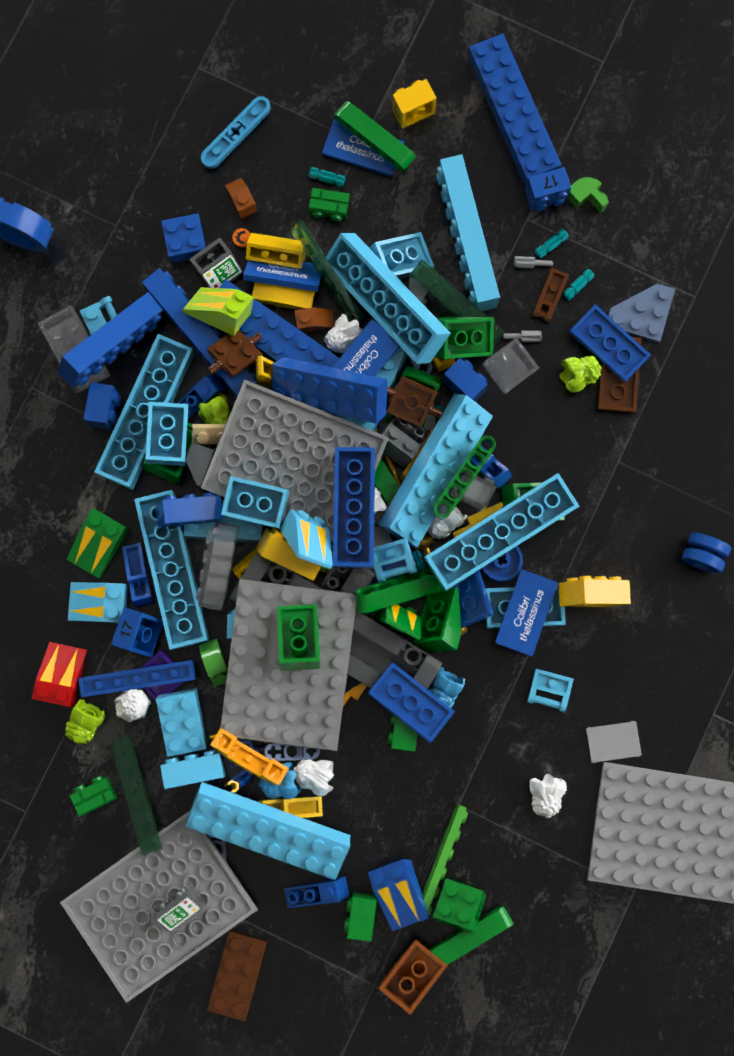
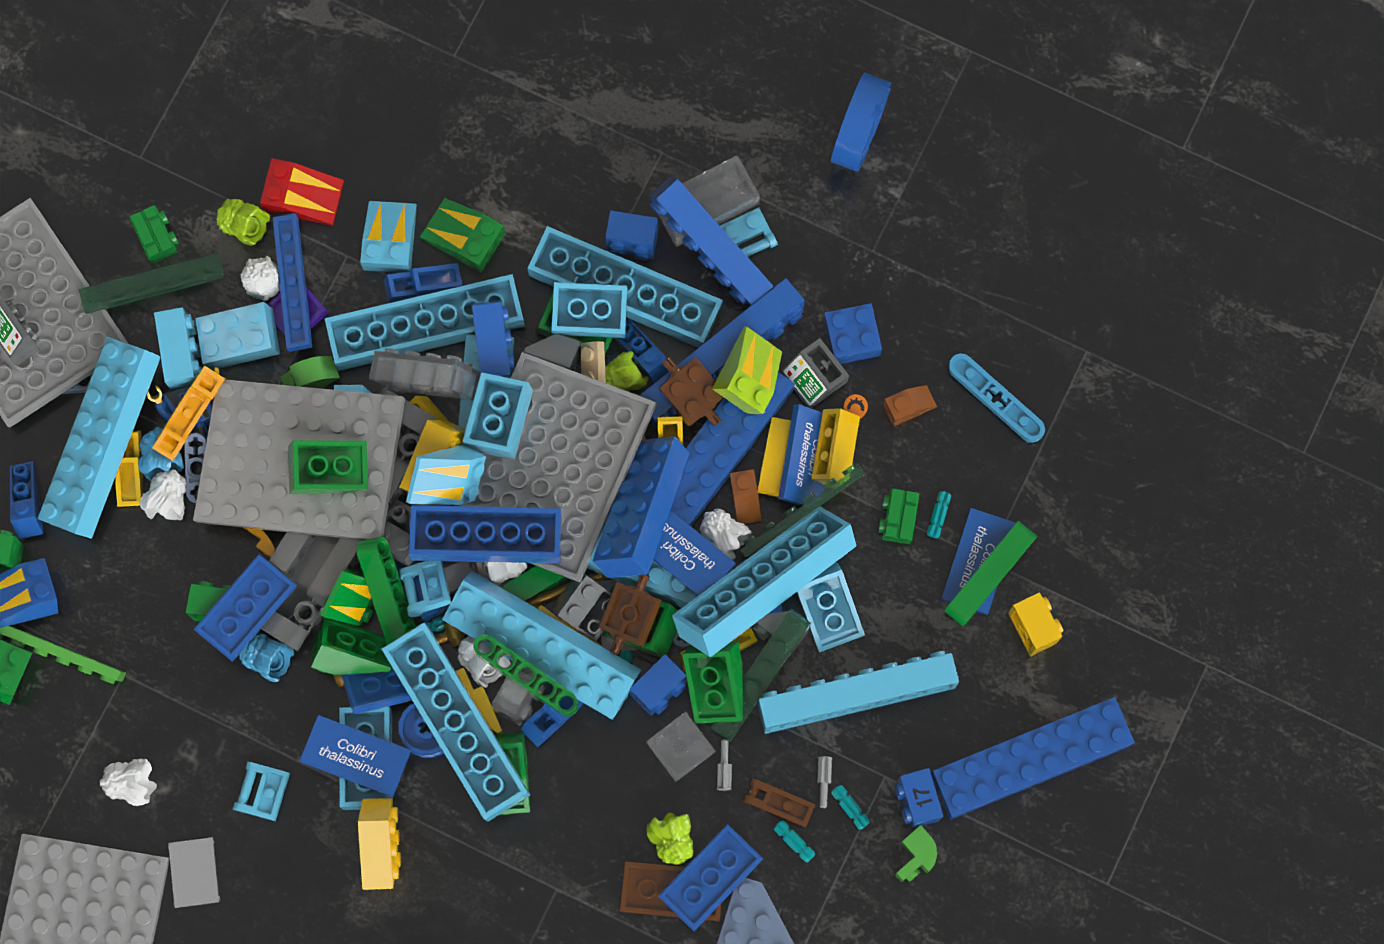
camera: 90 degrees right, 5 degrees down
(137, 632) = (347, 281): blue brick -> none

